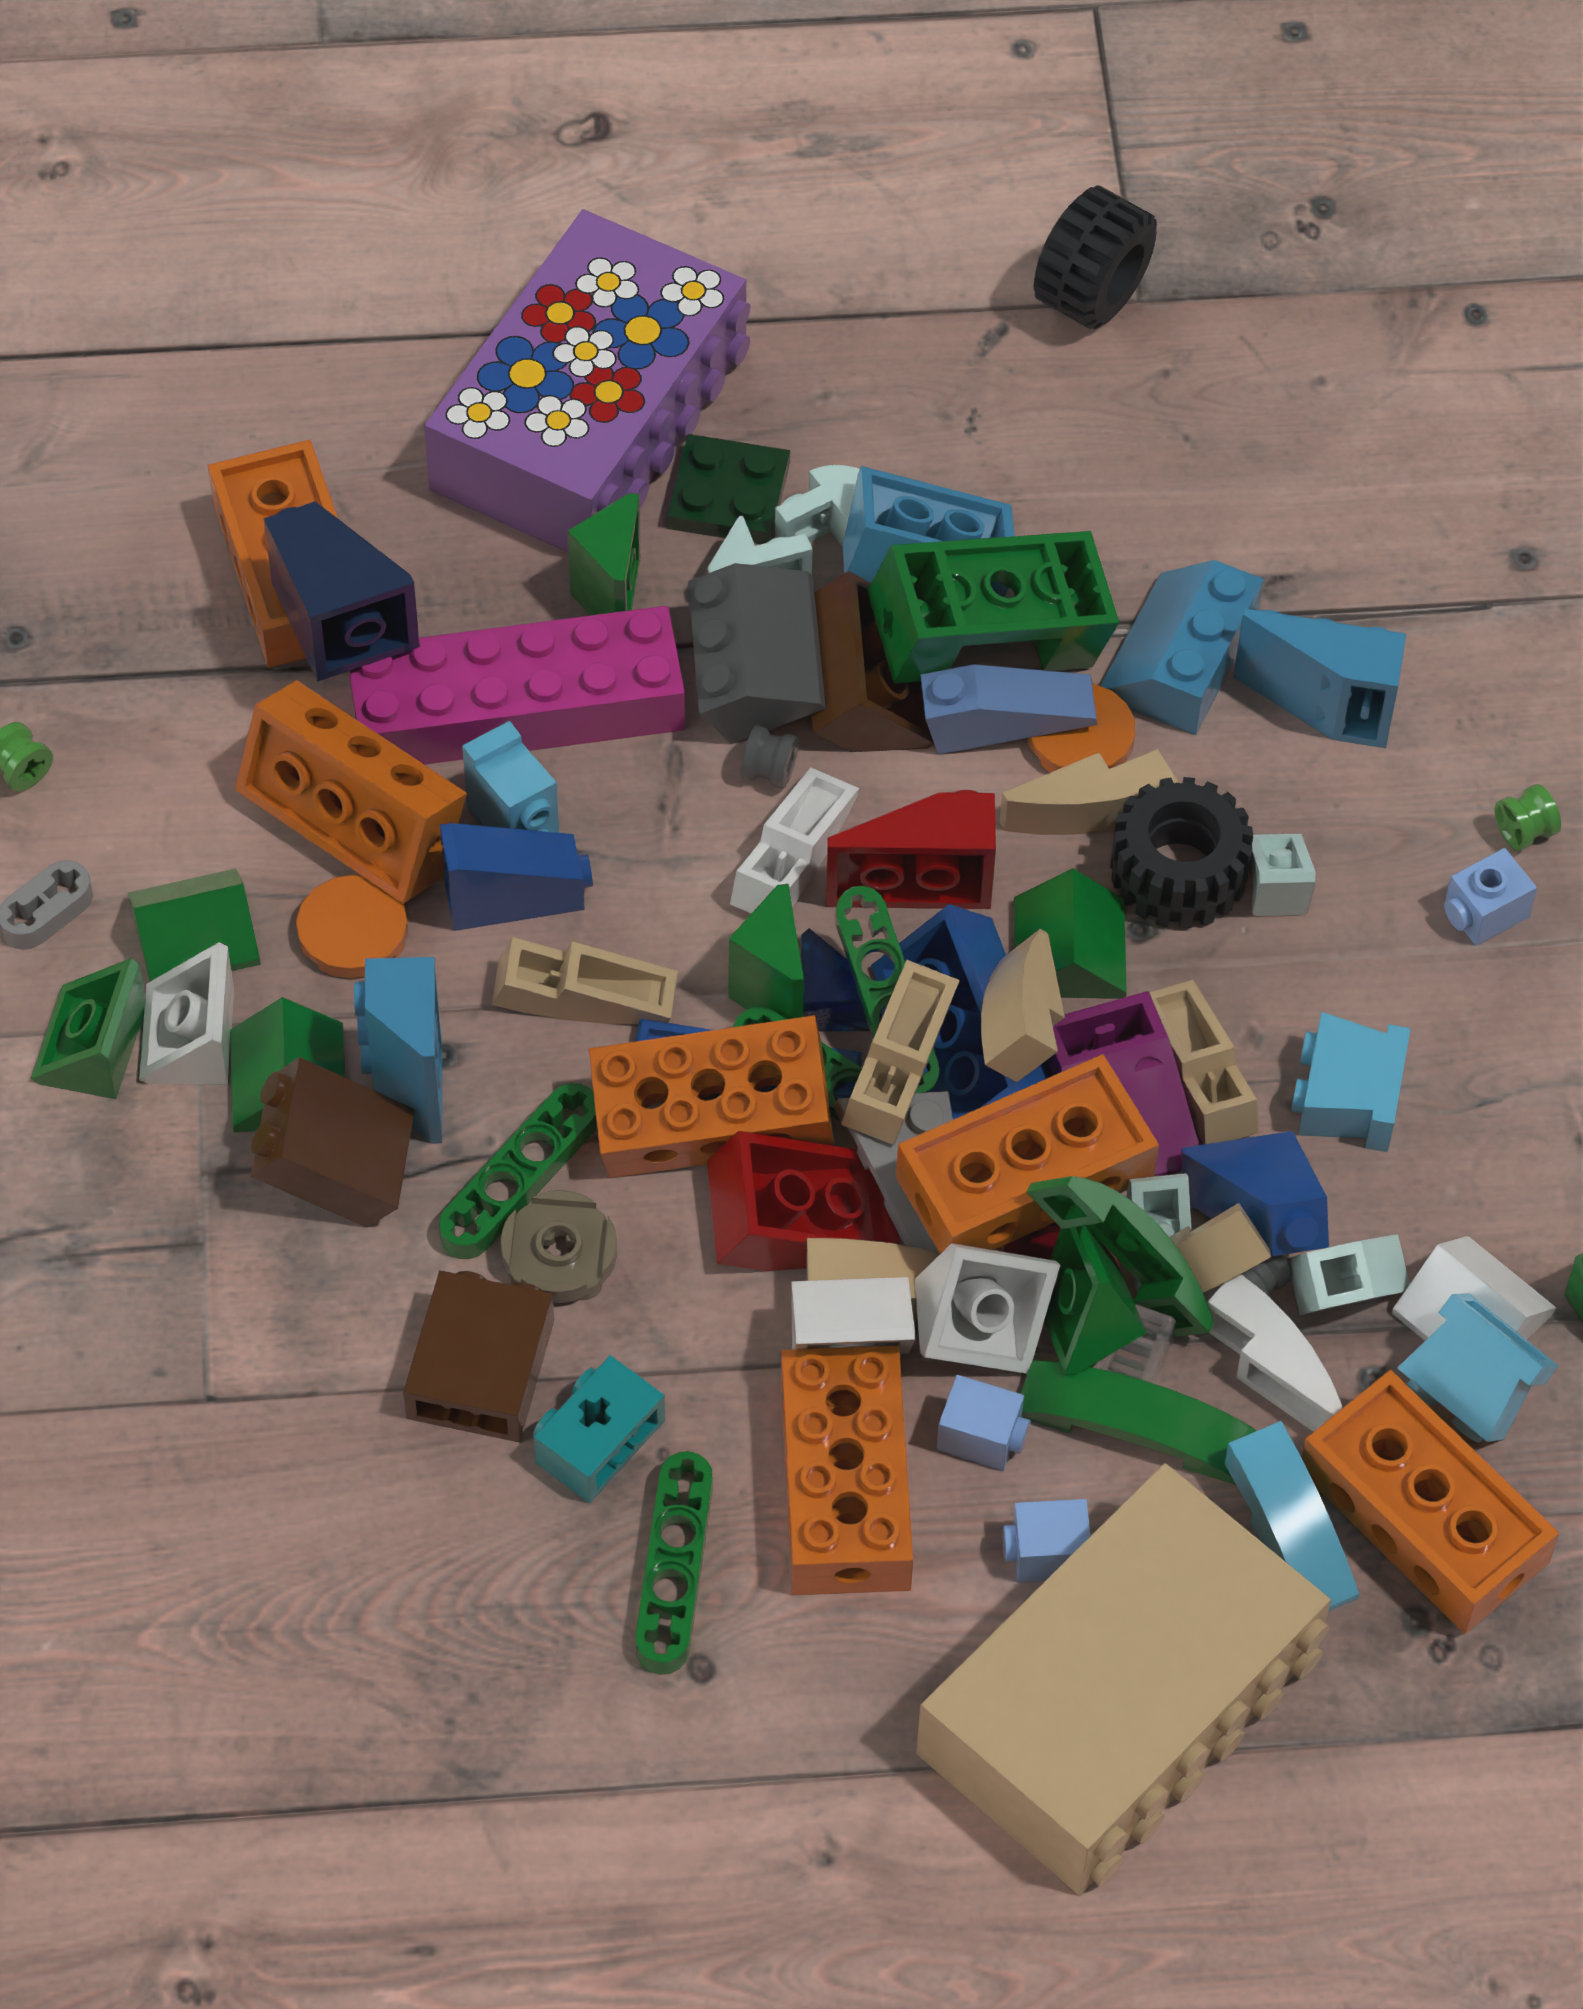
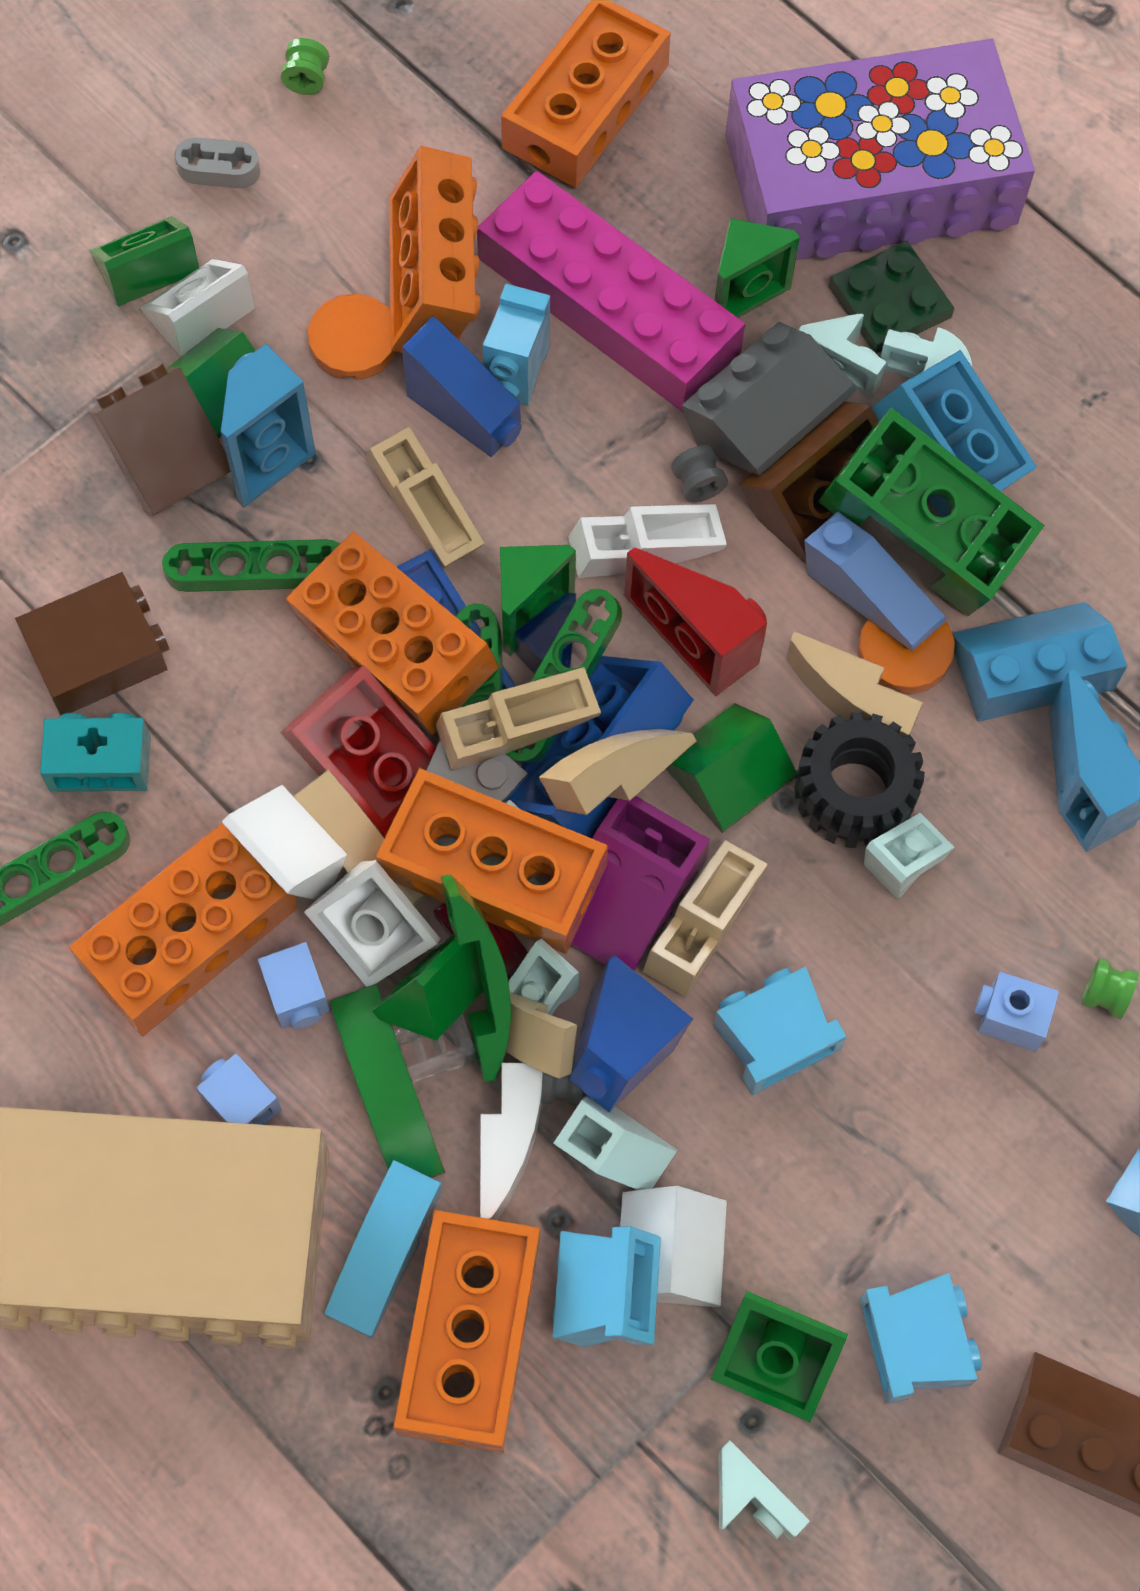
camera: 50 degrees right, 10 degrees up
(191, 916) = (274, 249): green slope -> none
(339, 591) = (539, 123): dark blue slope -> none
(565, 1215) = (219, 656): dark tan plate -> none

